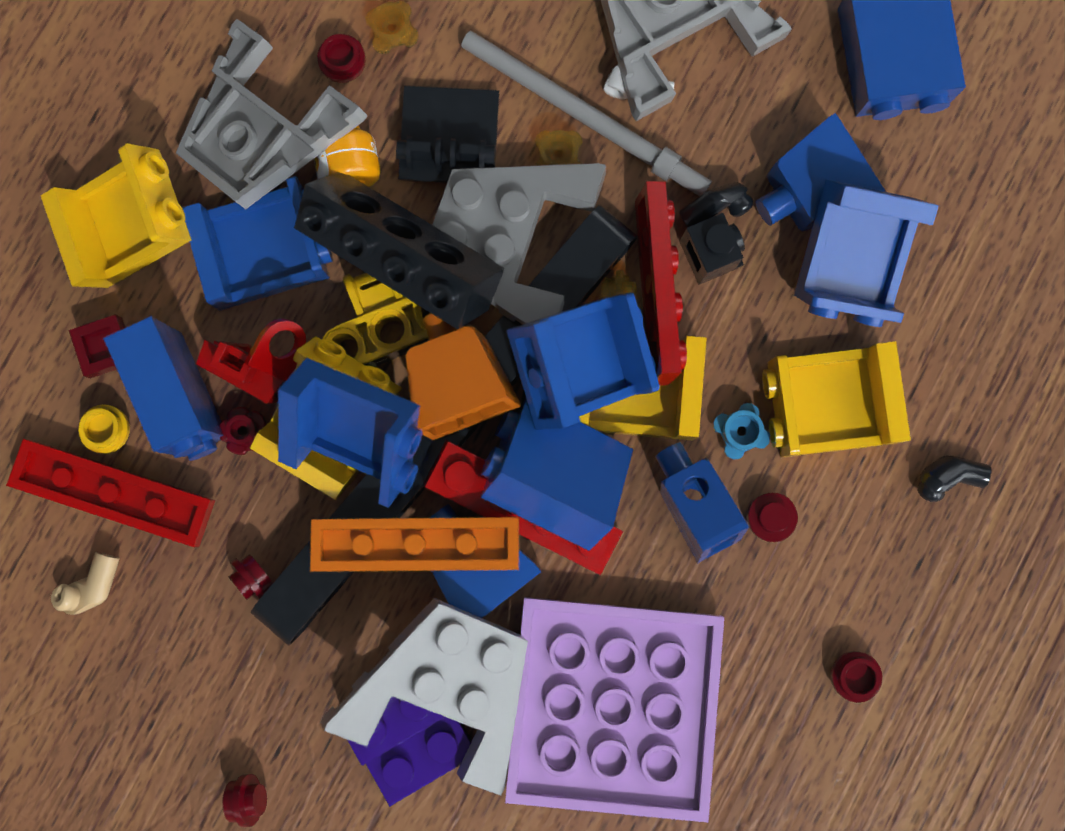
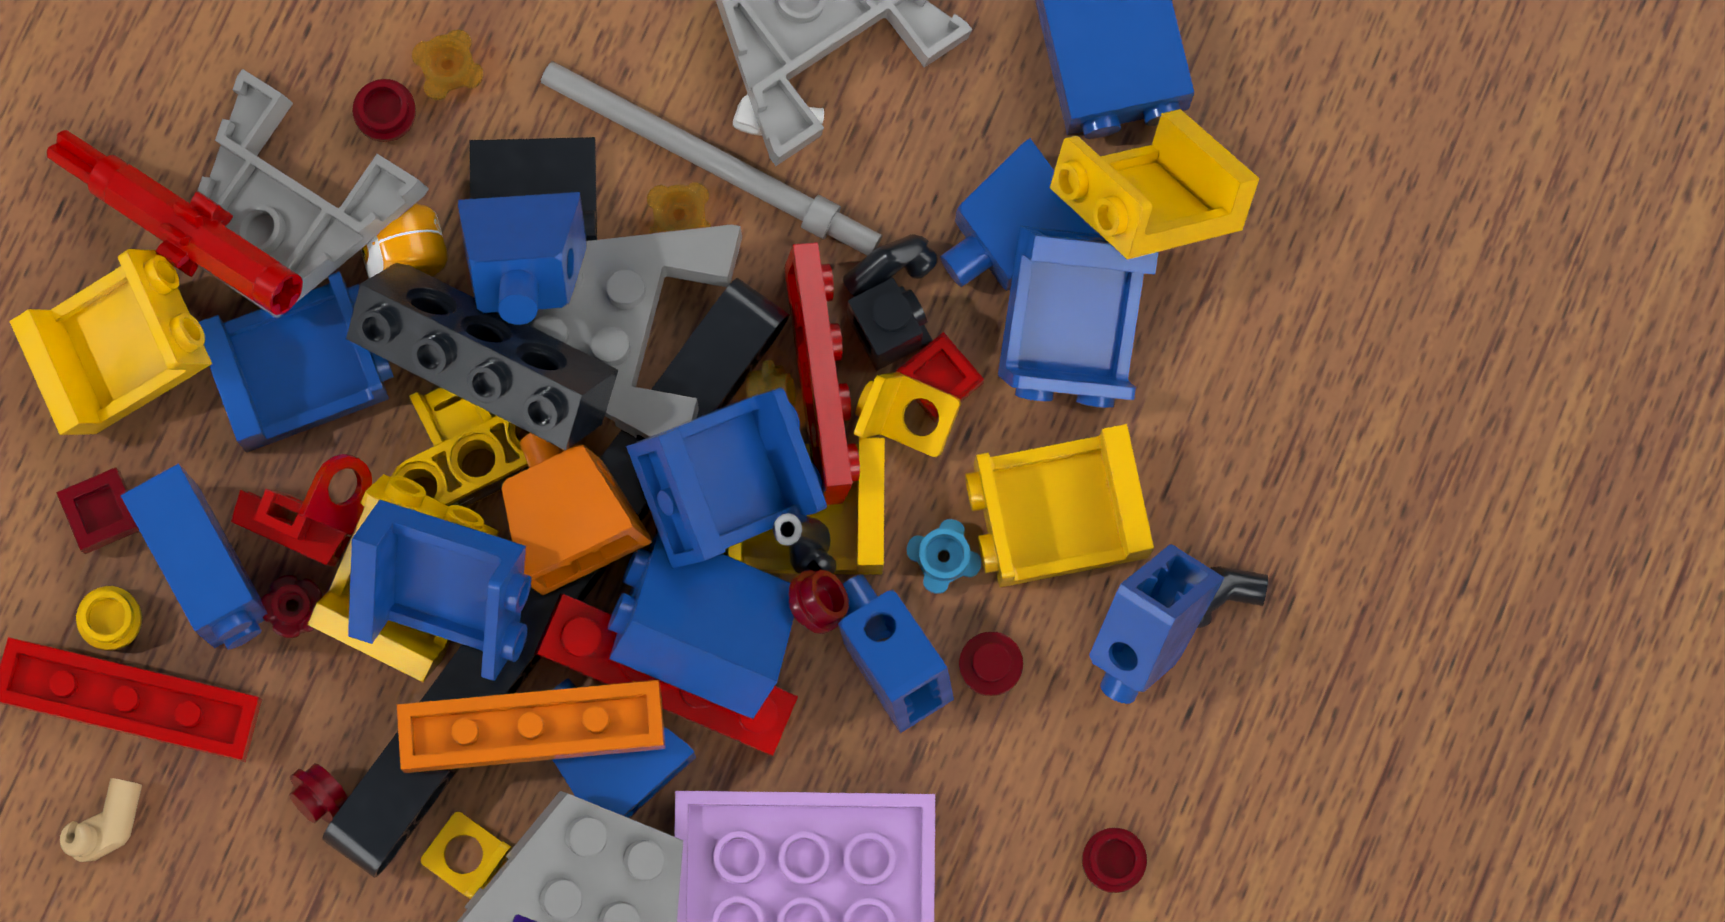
camera: 10 degrees left, 5 degrees down
(181, 136) = (189, 231): none -> red piece
(374, 651) = (492, 861): none -> yellow bracket
(437, 170) = (523, 252): none -> blue torso
(640, 417) = (807, 542): none -> black arm
(646, 461) = (818, 600): none -> dark red plate
(705, 315) = (883, 409): none -> yellow bracket
(747, 293) = (944, 368): none -> red tile
(906, 499) = (1152, 622): none -> blue torso
(939, 163) = (1158, 193): none -> yellow panel

